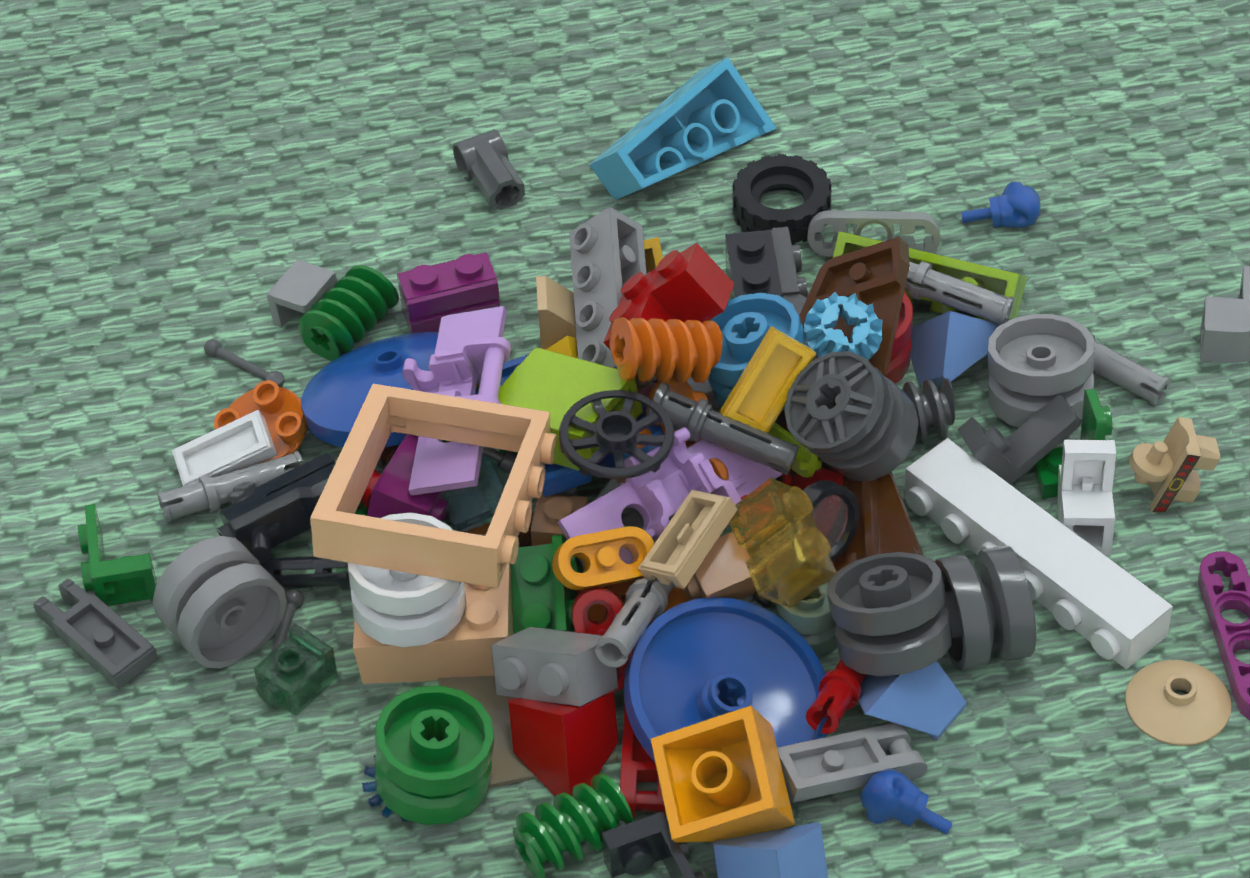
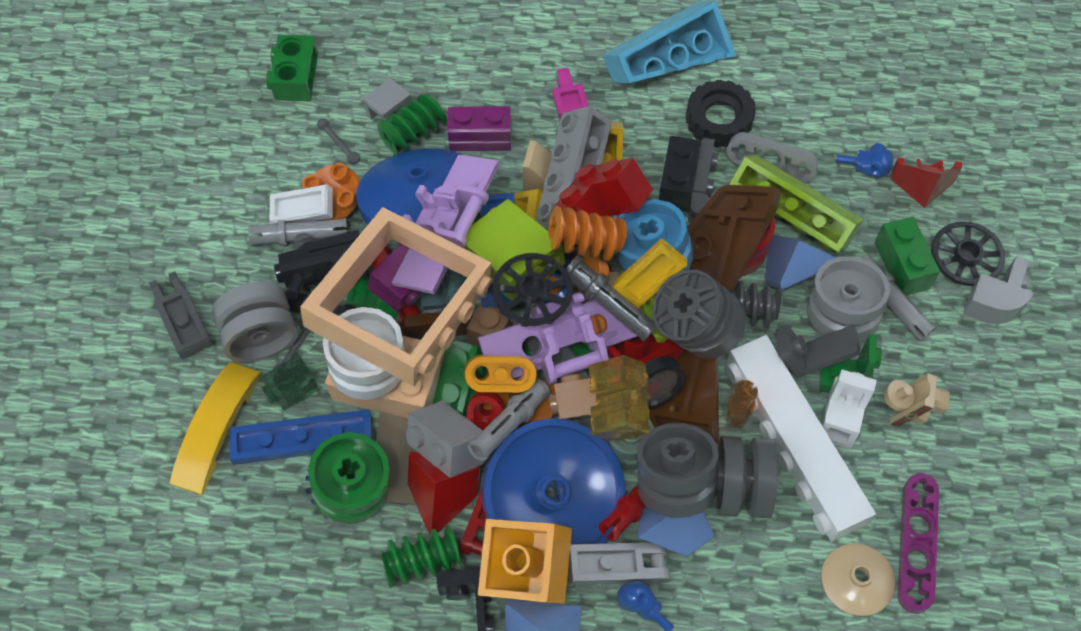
camera: 15 degrees right, 15 degrees up
(113, 580) = (200, 281): green bracket -> none
(143, 285) = (293, 68): none -> green brick
(200, 761) = (210, 427): none -> yellow slope
(314, 741) = (293, 436): none -> blue plate
(487, 163) = (538, 37): dark grey piece -> none
(554, 225) = (568, 96): none -> dark pink plate
(688, 538) = (560, 380): tan tile -> none
(824, 316) = (704, 255): medium azure gear -> none
(946, 521) = (741, 403): none -> clear orange pin
(957, 293) = (808, 225): light grey pin -> none
(1089, 213) = (924, 181): none -> red slope
(1101, 302) = (907, 256): none -> green brick
(1177, 286) = (967, 253): none -> black wheel

